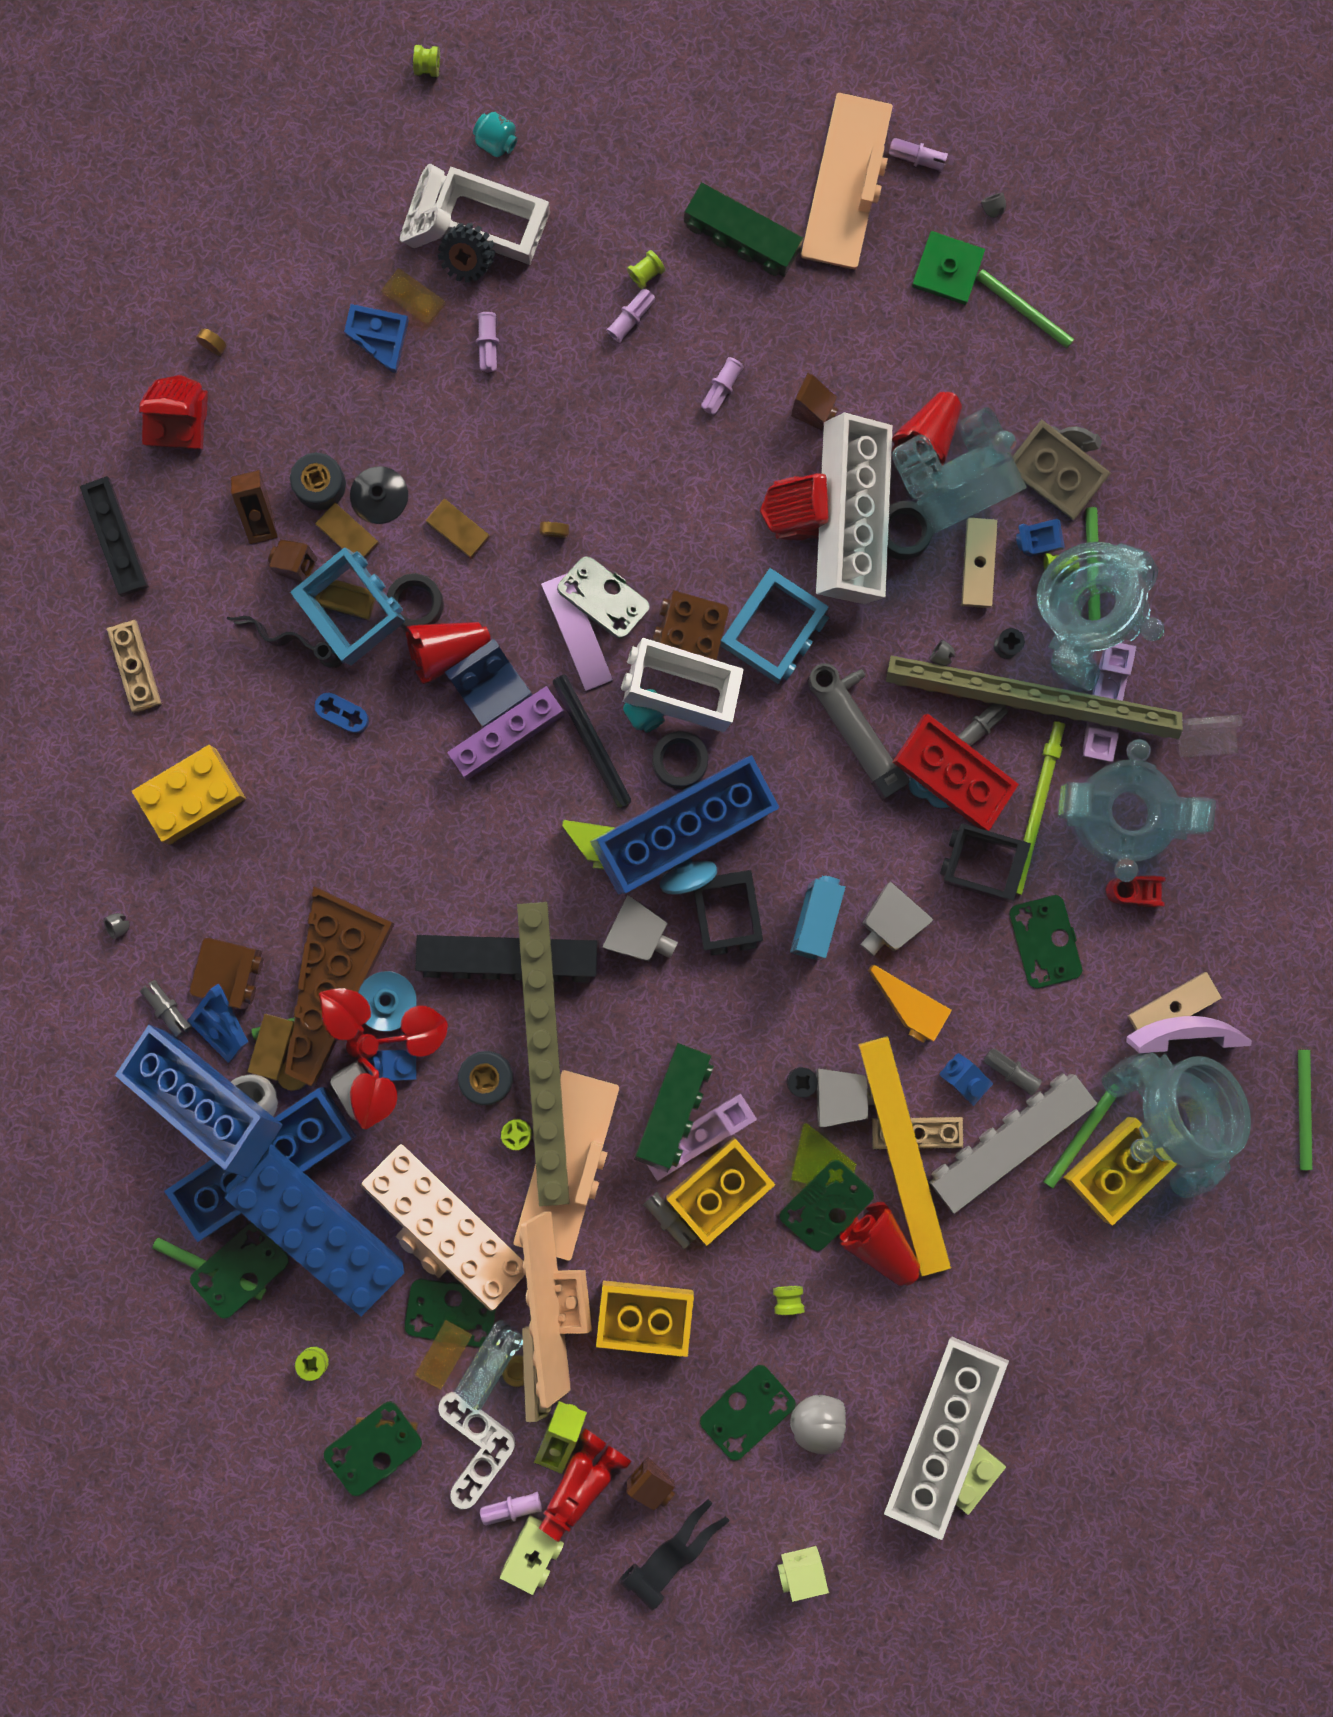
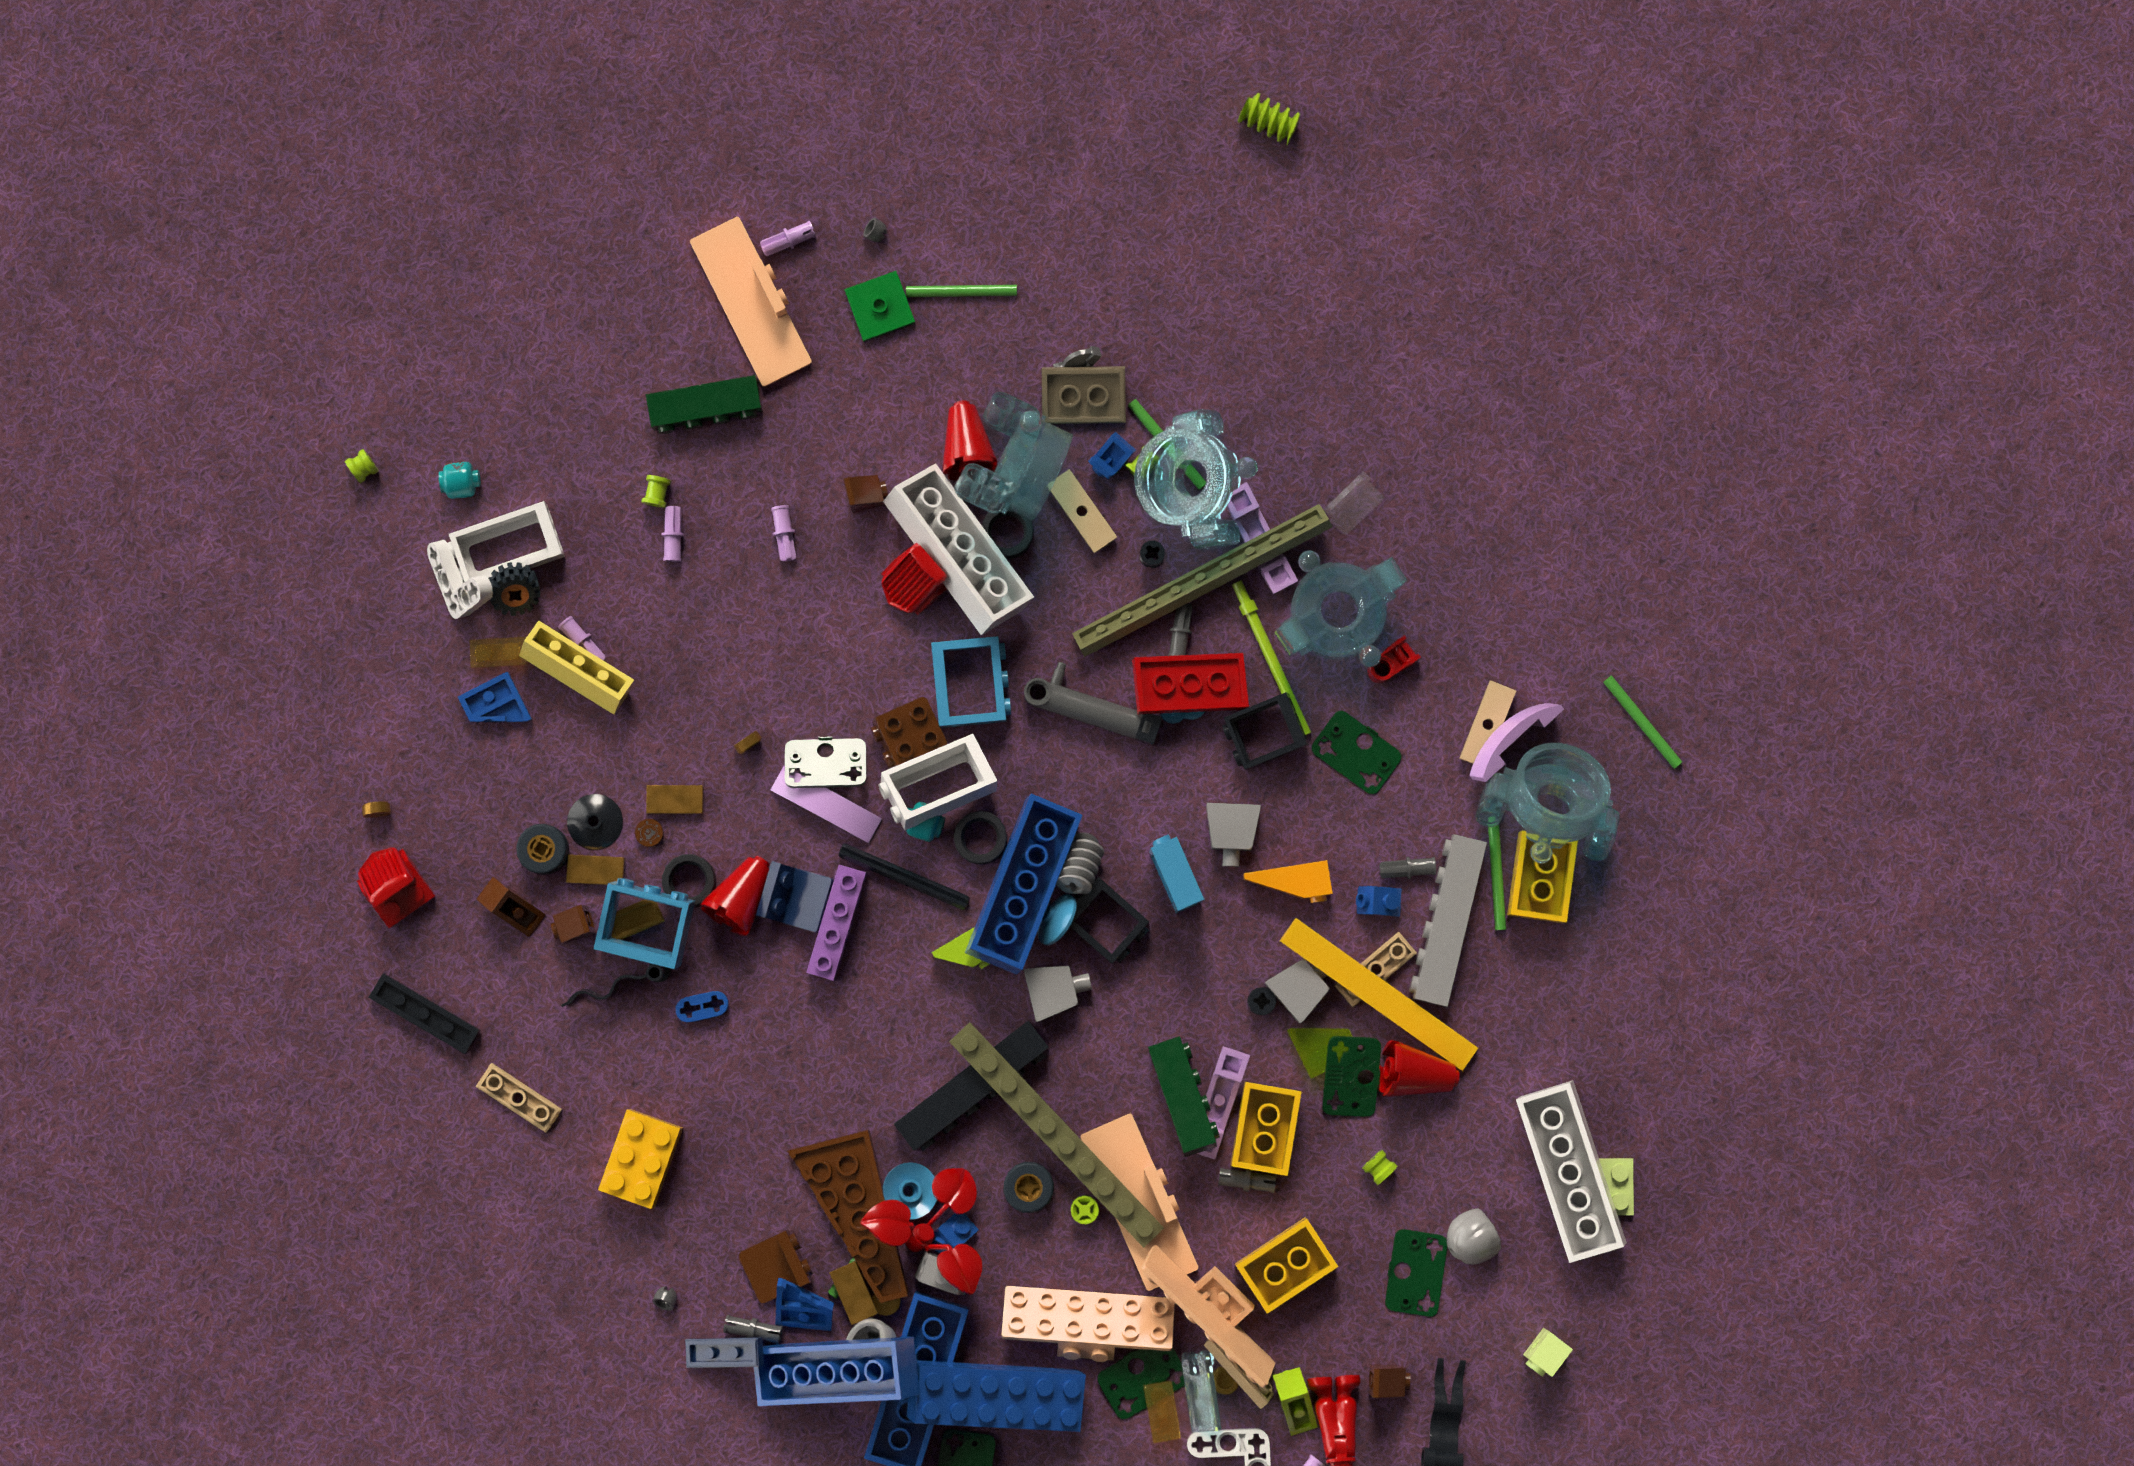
camera: 30 degrees left, 0 degrees up
(125, 1009) = (724, 1352): none -> tile
(415, 538) = (649, 832): none -> reddish brown tile
(464, 355) = (576, 667): none -> light yellow brick
(744, 848) = (1081, 864): none -> light grey piece
(941, 656) = (1108, 597): dark grey hinge -> none

